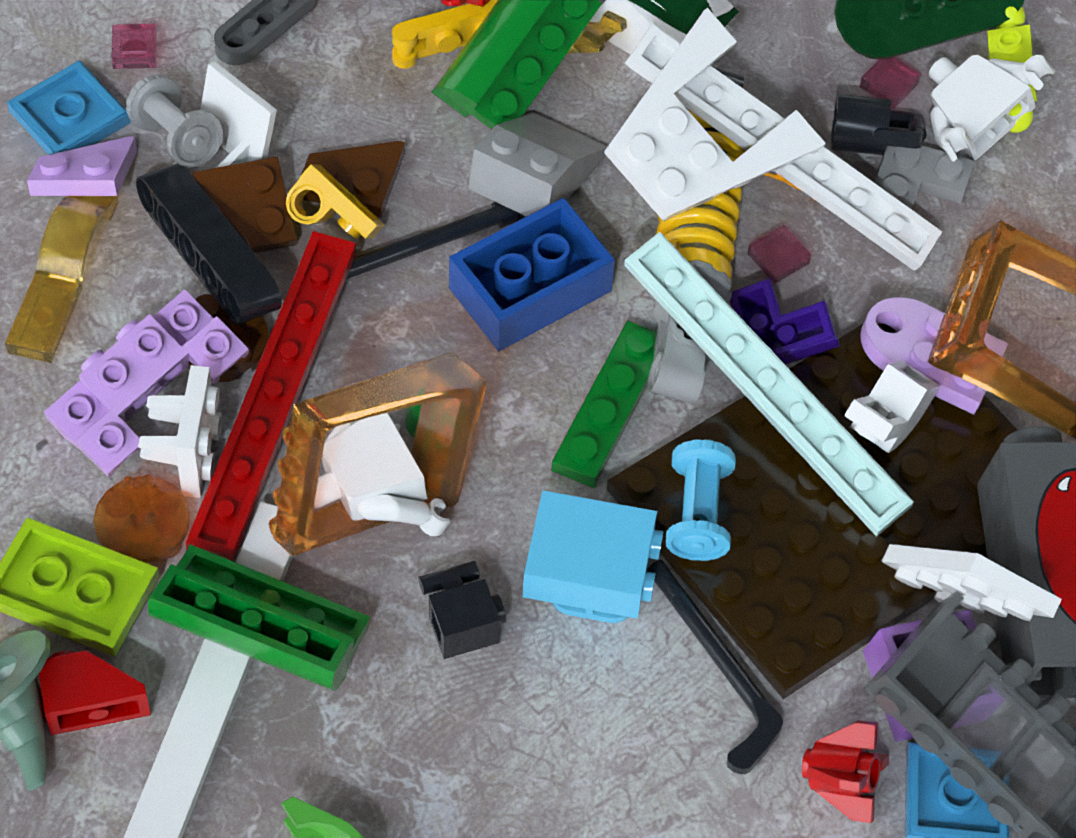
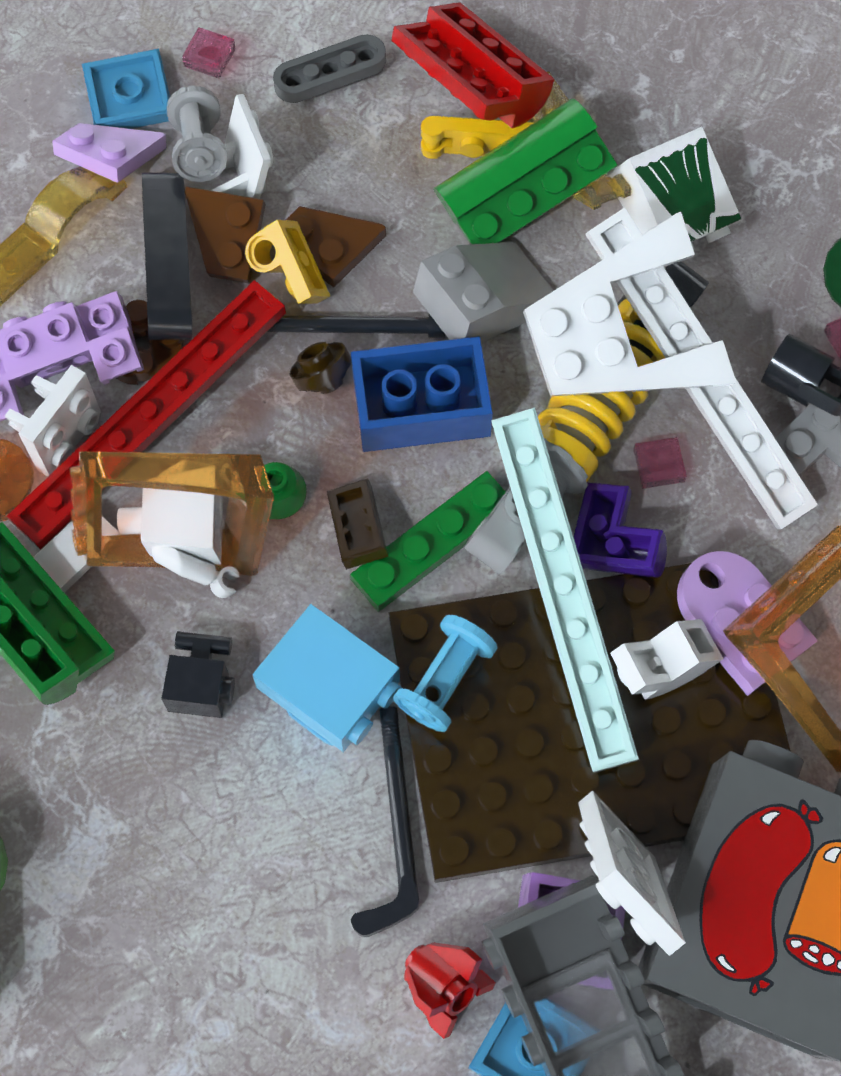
camera: 30 degrees right, 10 degrees up
(418, 288) = (321, 367): none -> dark brown plate
(533, 413) = (357, 524): none -> dark brown plate

